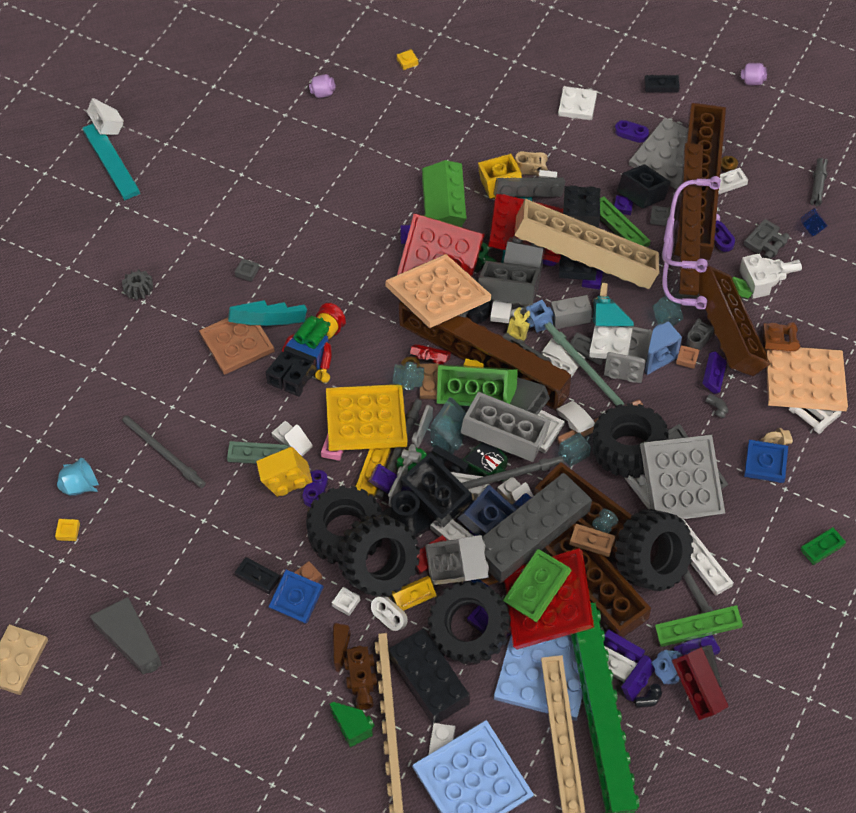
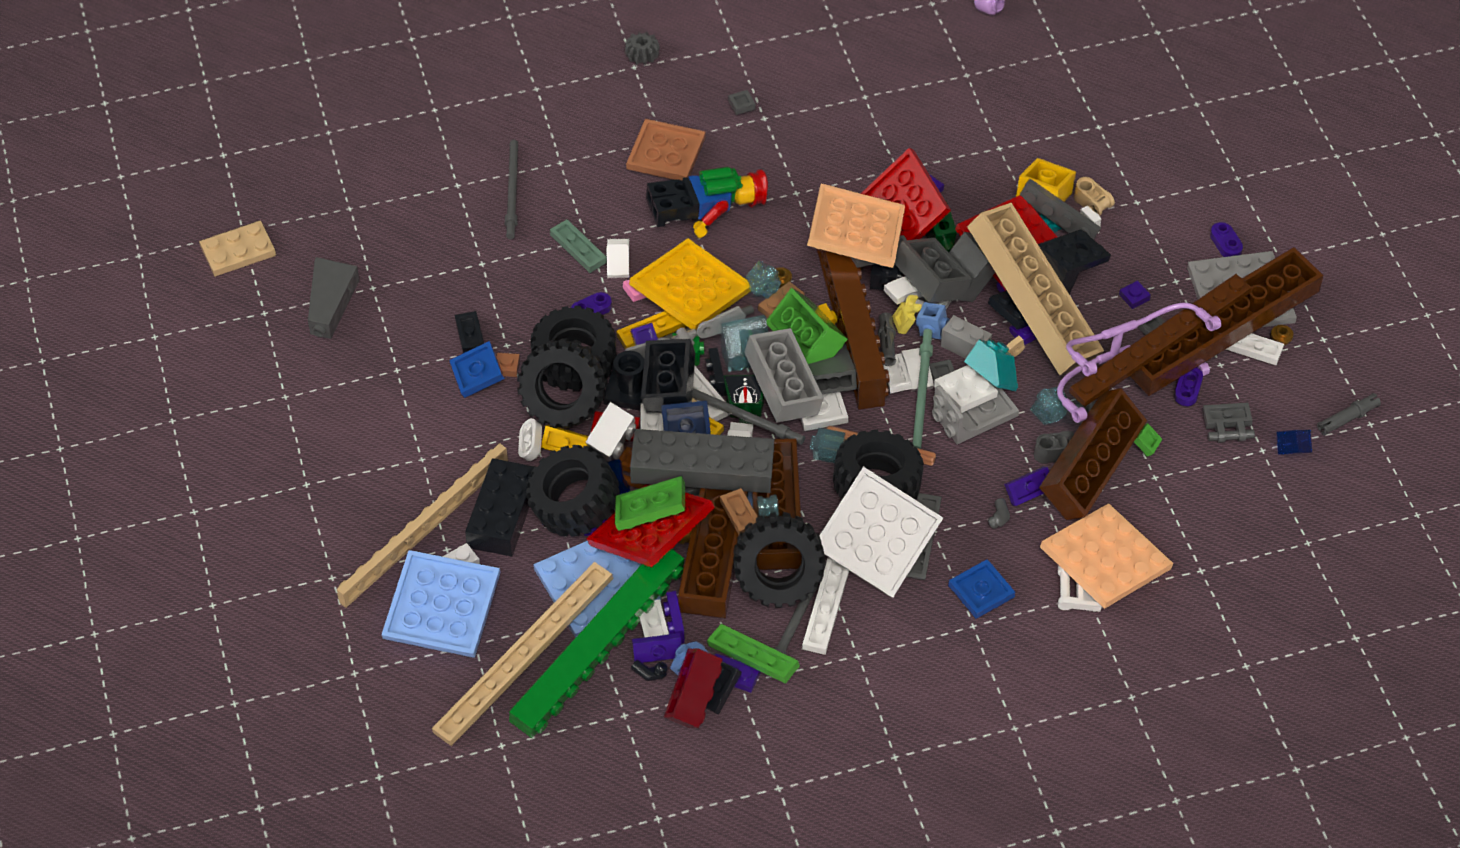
camera: 45 degrees right, 5 degrees down
(67, 530) = (376, 188): yellow plate -> none
(77, 478) = (420, 151): medium azure helmet -> none
(262, 314) = (704, 141): teal slope -> none
(284, 471) = (574, 270): yellow brick -> none
(341, 639) = (466, 431): reddish brown slope -> none
(345, 601) = (510, 405): white plate -> none
(352, 723) = (407, 491): green slope -> none
(359, 664) = (455, 464): reddish brown brick -> none
(407, 59) = (1097, 32): yellow plate -> none
(424, 352) = (804, 275): red plate -> none
(444, 192) = (976, 165): bright green slope -> none
(576, 416) = (861, 420): white slope -> none
(577, 103) = (1207, 180): white plate -> none
(620, 224) = (1107, 302): bright green plate -> none
(643, 186) = (1164, 285): black brick -> none
(661, 83) = (1309, 220): black plate -> none
(663, 347) = (1000, 425): medium blue slope -> none
(687, 357) = (1023, 455): nougat plate -> none
(754, 74) = (1412, 277): lavender head -> none
(765, 273) = (1185, 444): white brick -> none
(774, 337) = (1125, 499): dark orange plate -> none
(778, 437) = (1016, 580): tan piece -> none
(823, 546) = (941, 690): green plate -> none

